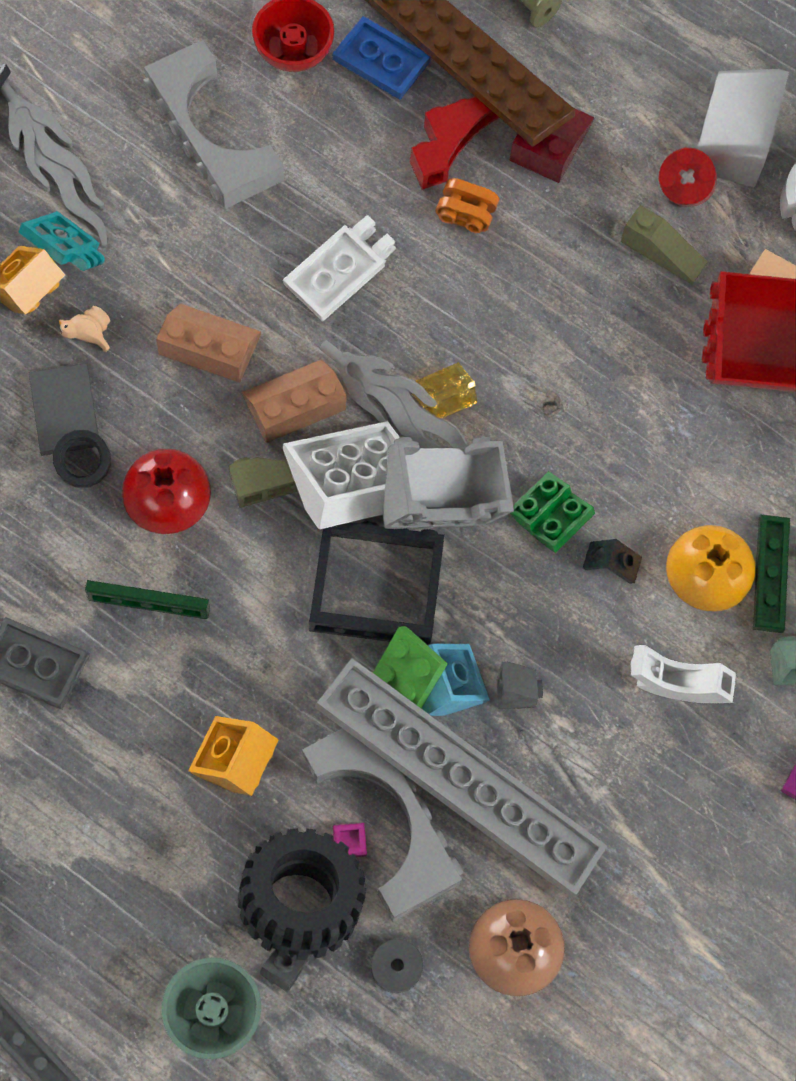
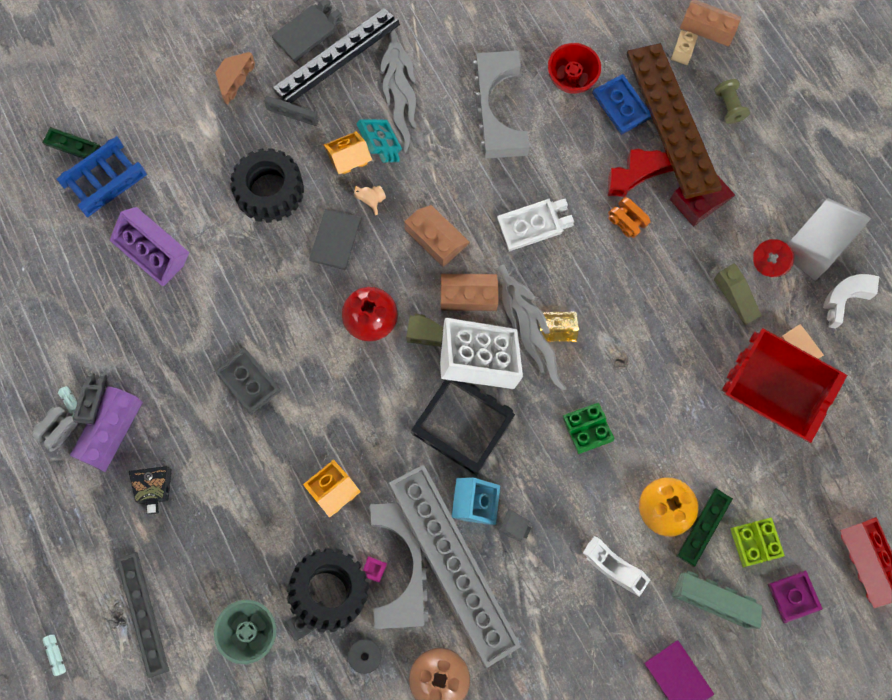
camera: 30 degrees right, 5 degrees up
(81, 481) = (315, 273): black tyre -> none
(147, 599) = (327, 374): dark green tile -> none
(410, 666) = (455, 485): bright green plate -> none
(445, 485) = (529, 385): light grey windscreen -> none
(616, 558) = (612, 474): black bracket -> none

